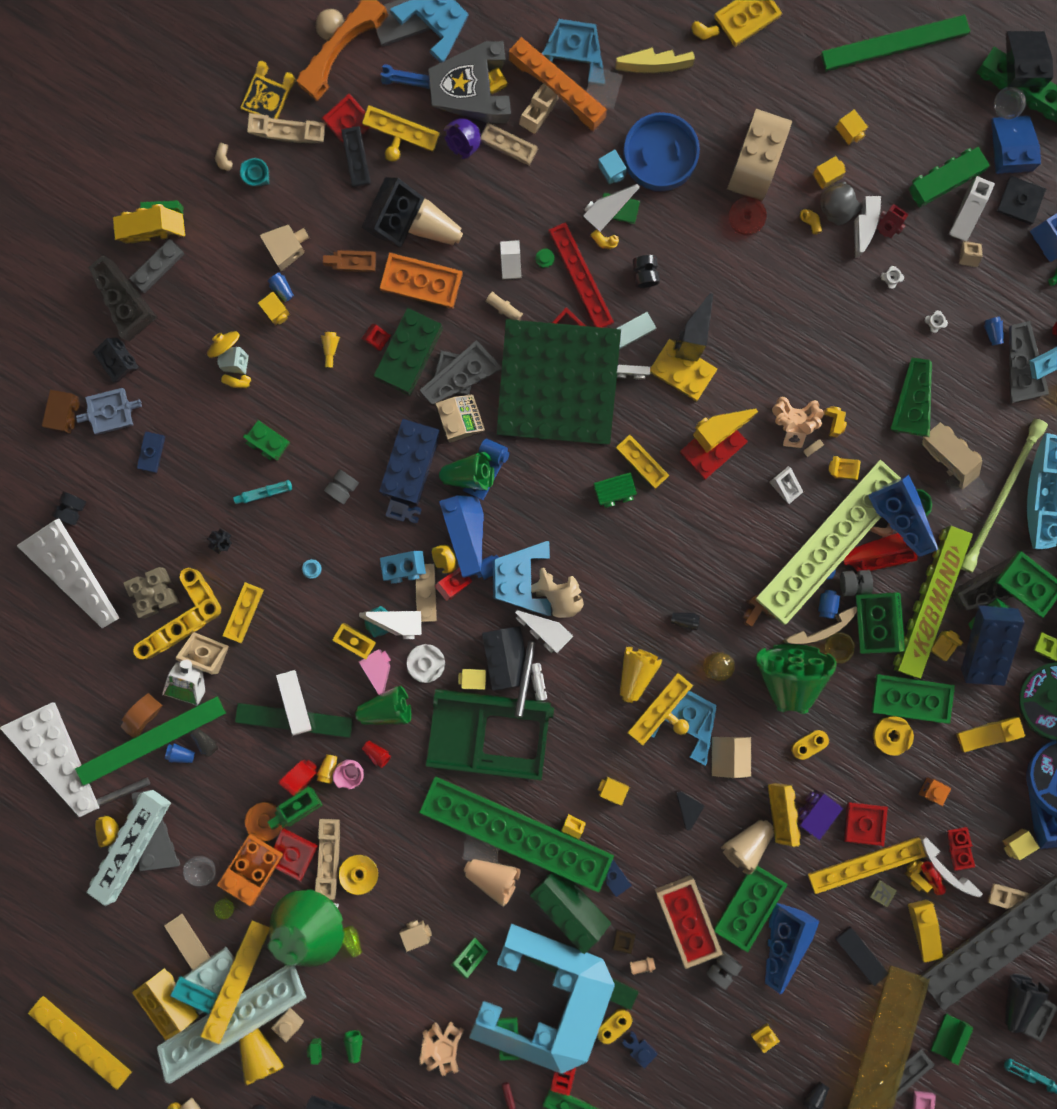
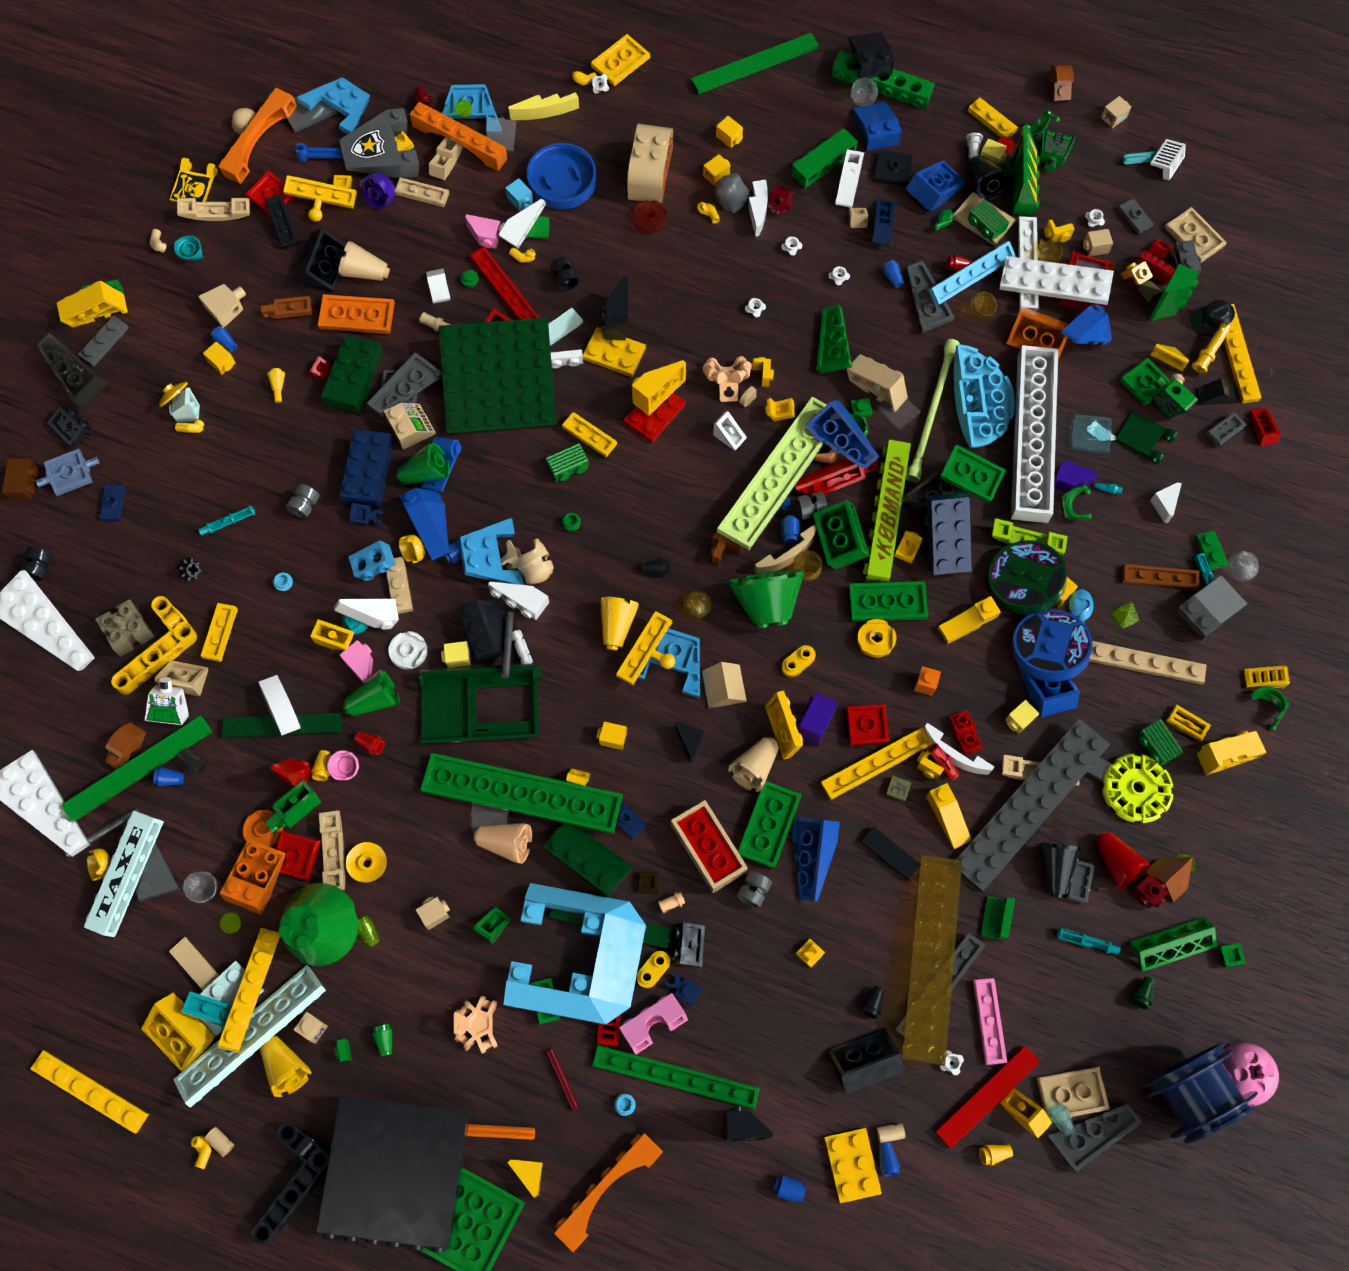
camera: 15 degrees left, 15 degrees down
(267, 440) = (225, 474): green bracket -> none
(425, 118) = (342, 181): none -> yellow tile
(452, 584) = (423, 571): red slope -> none
(524, 27) = (422, 96): none -> dark red cone
(568, 51) = (463, 108): none -> clear neon green plate
(568, 204) = (484, 230): none -> bright pink slope
(589, 1084) = (666, 1011): none -> bright pink arch
(608, 555) = (571, 521): none -> green plate
(650, 1010) = (687, 944): none -> black bracket
(717, 37) = (595, 82): none -> white plate
(840, 338) = (754, 302): none -> white plate
(928, 480) = (862, 407): none -> green plate
(997, 266) = (883, 222): none -> dark blue slope

